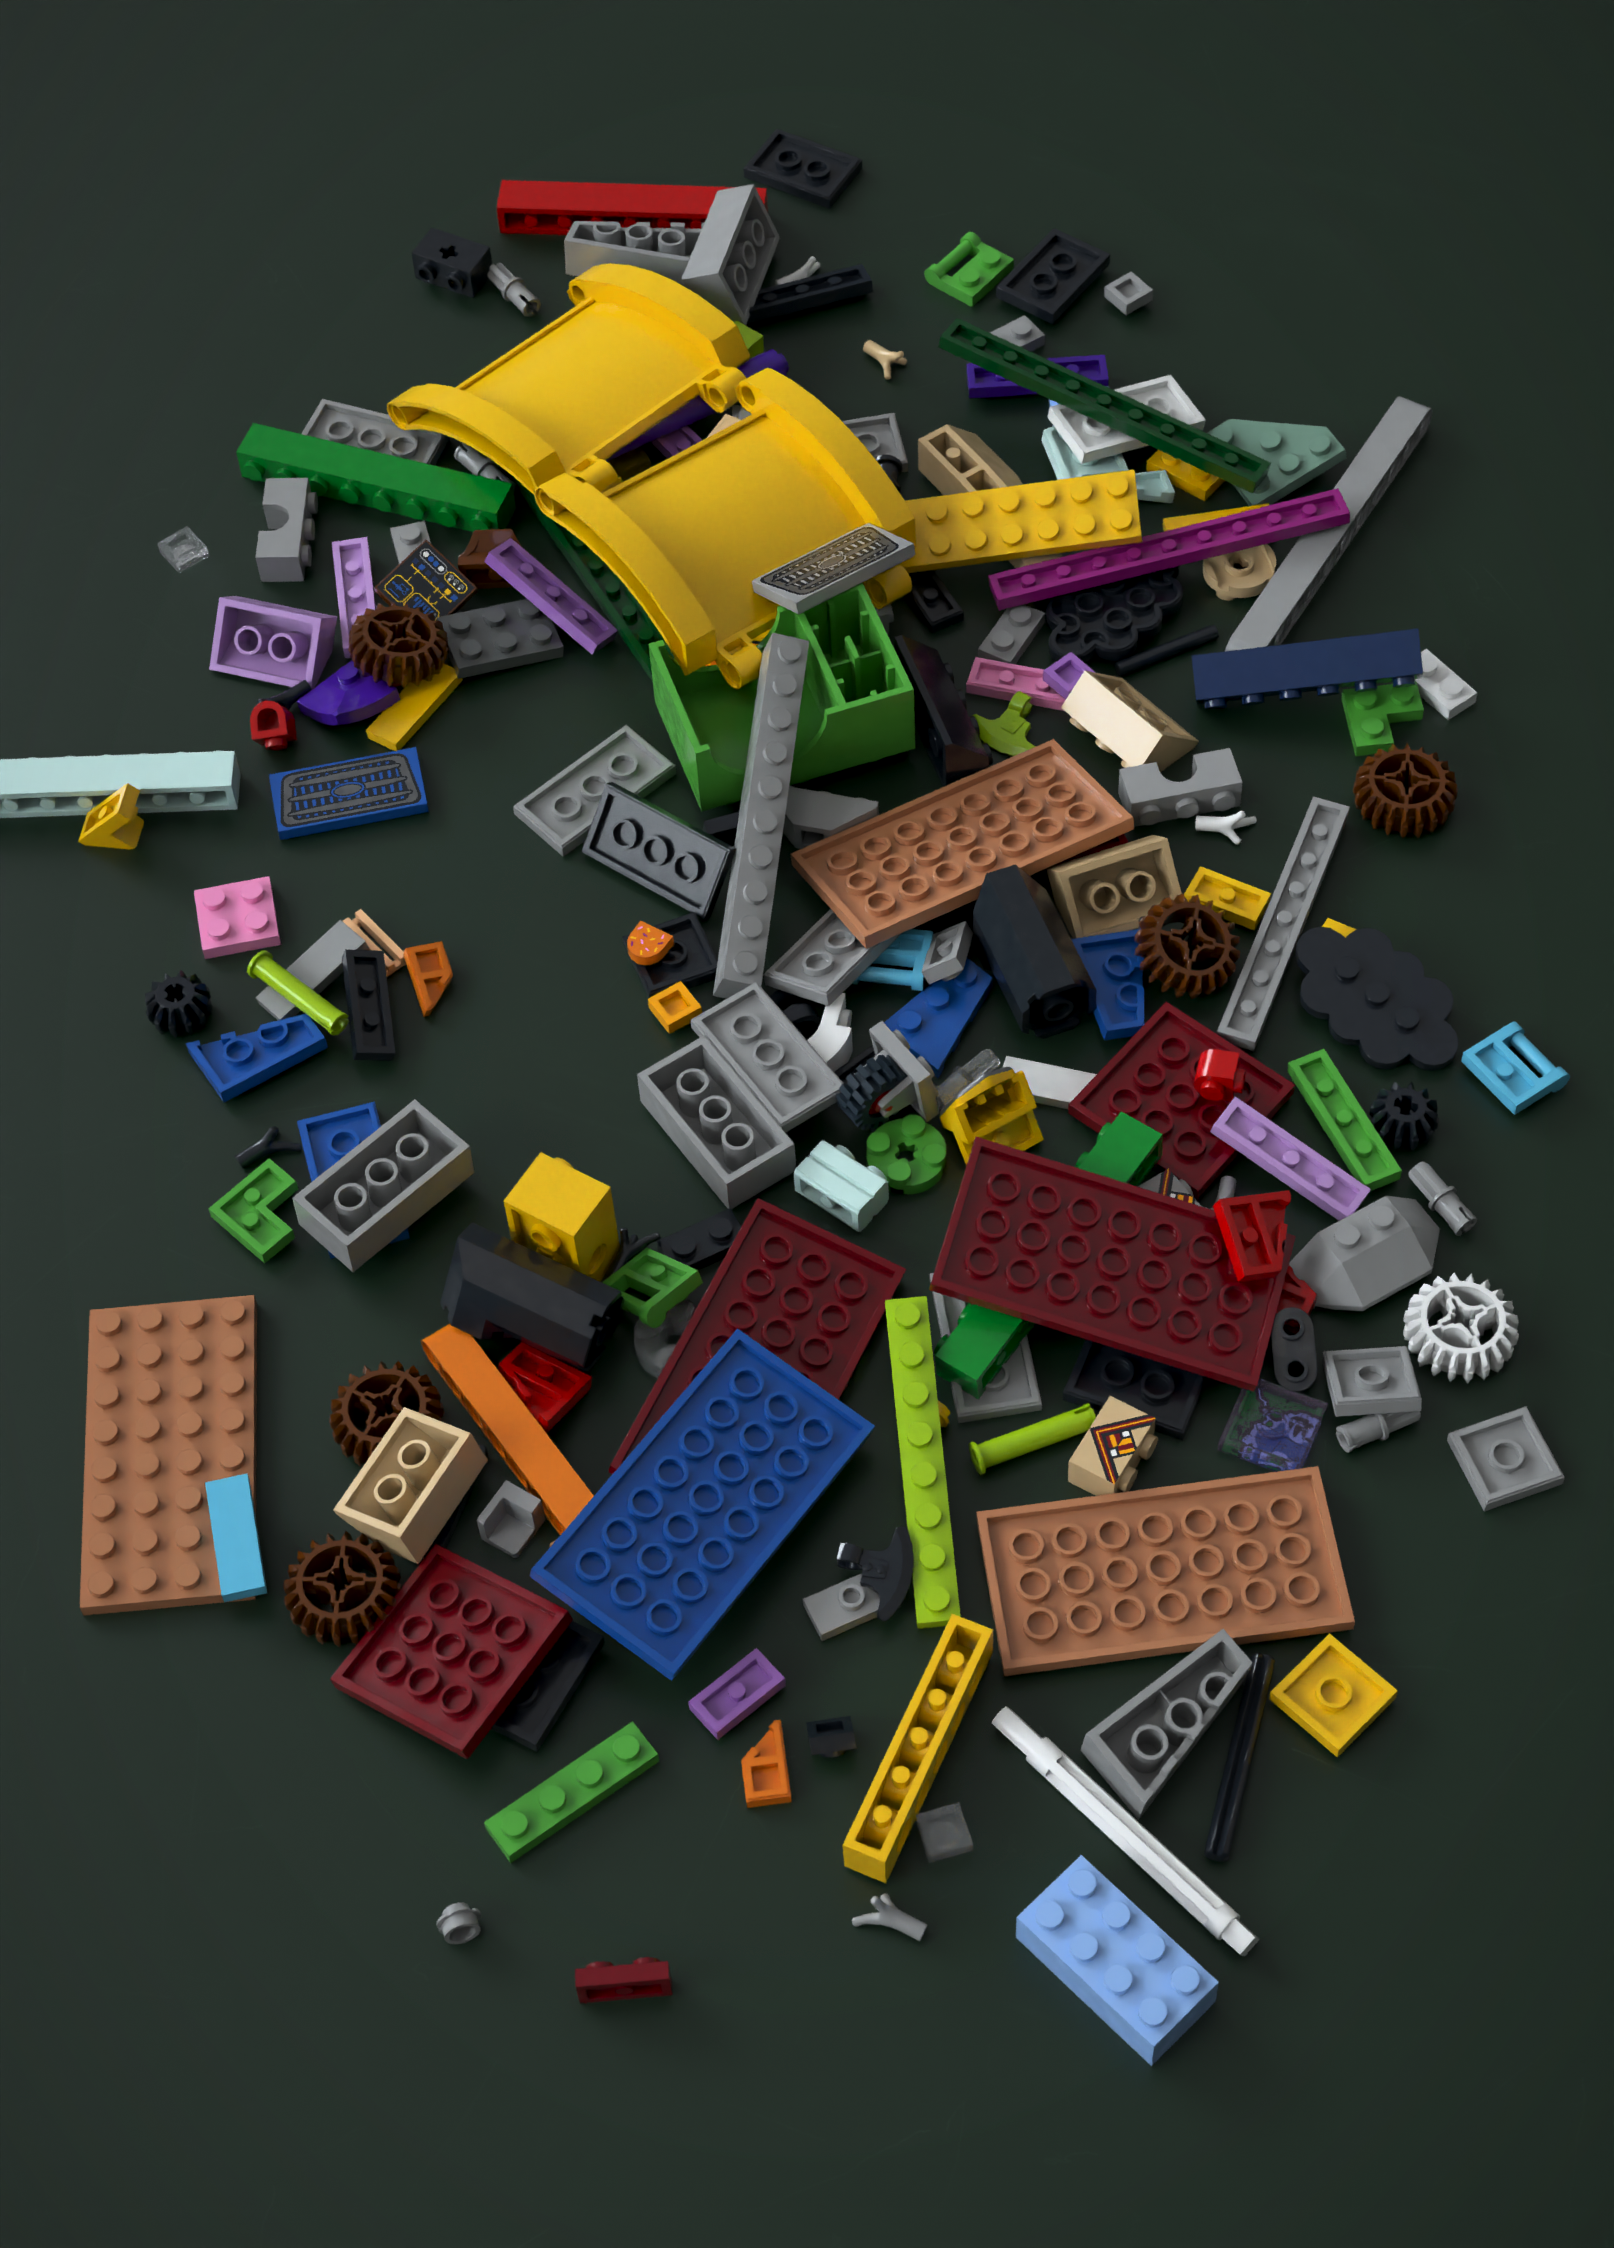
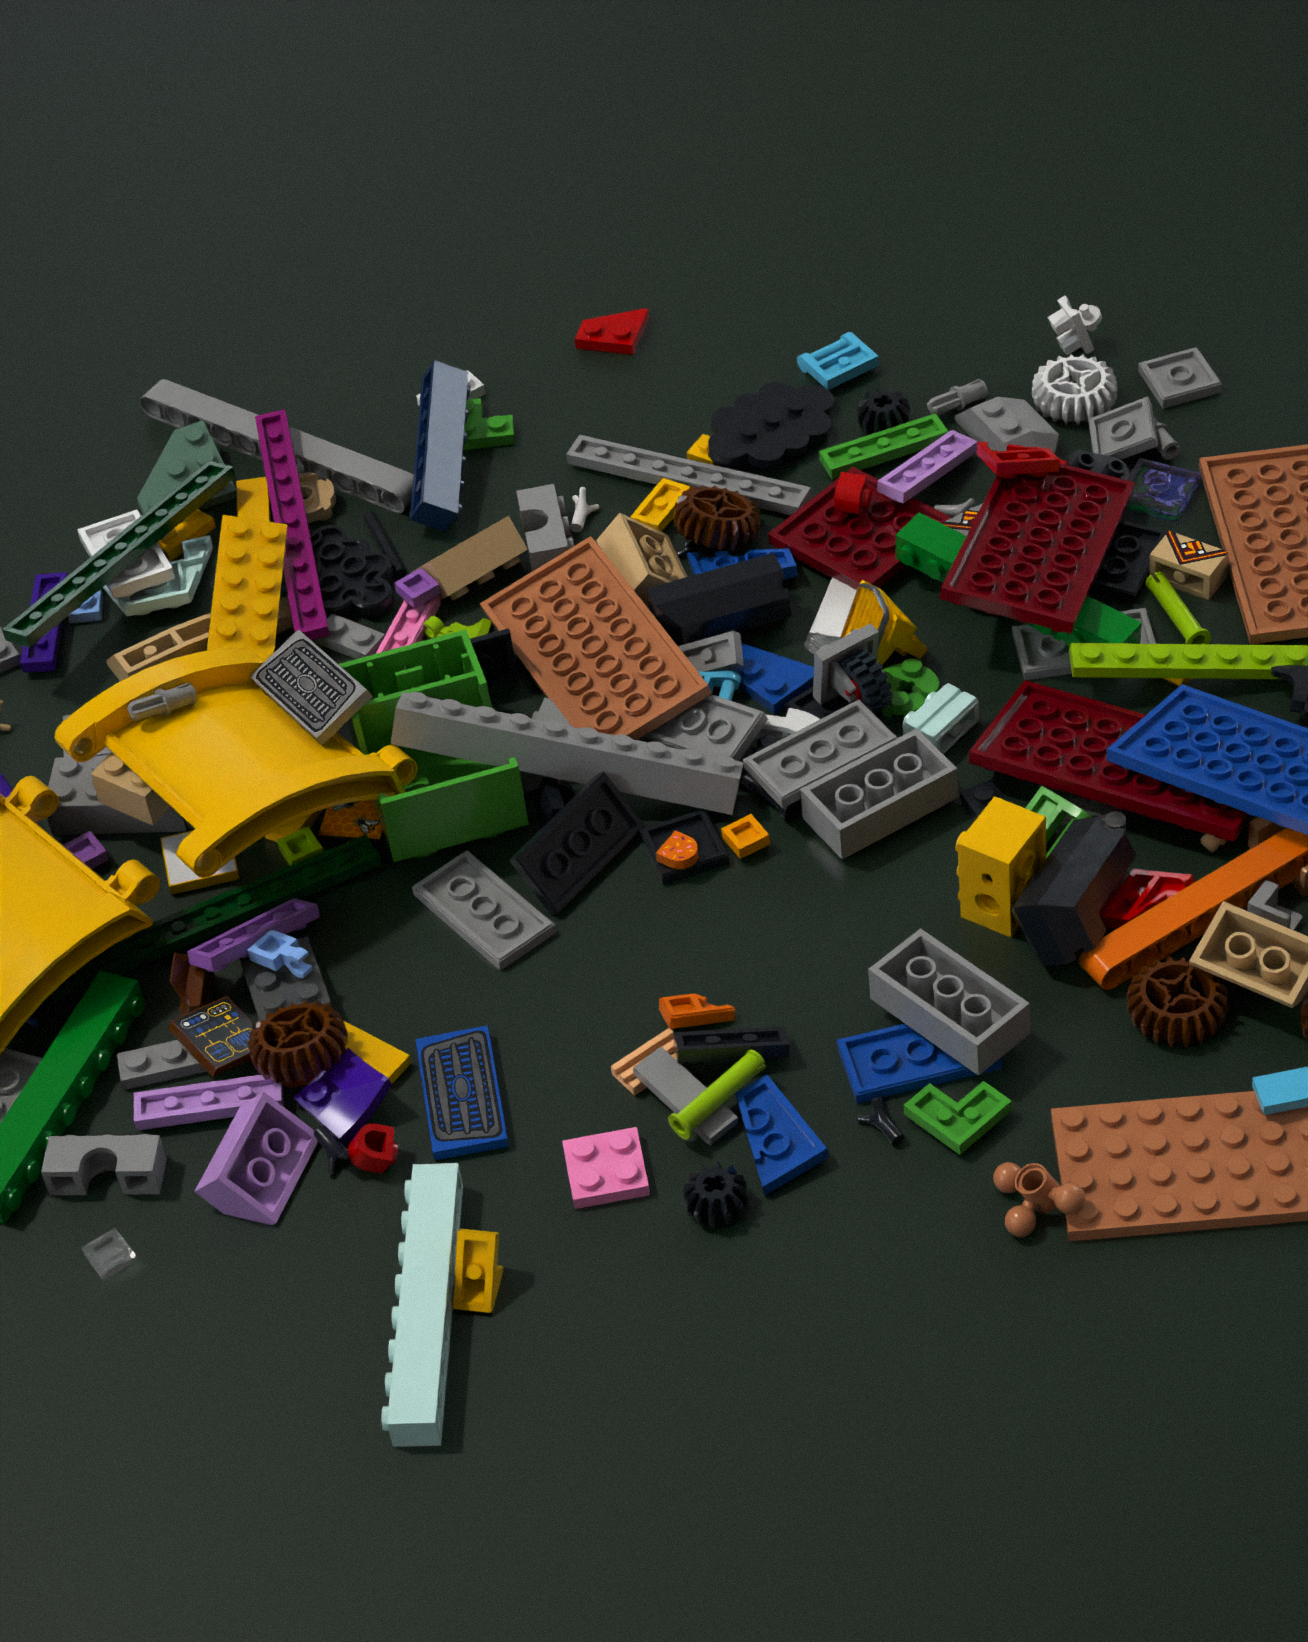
camera: 85 degrees left, 10 degrees down
(137, 1274) = (1040, 1194): none -> nougat piece
(480, 465) = (56, 1012): light grey pin -> none
(516, 612) = (279, 949): none -> light blue plate
(793, 441) = (162, 702): none -> light grey axle
(1382, 784) = (565, 407): reddish brown gear -> none
(1567, 834) = (613, 332): none -> red wing
(1578, 1318) = (1078, 322): none -> white hips

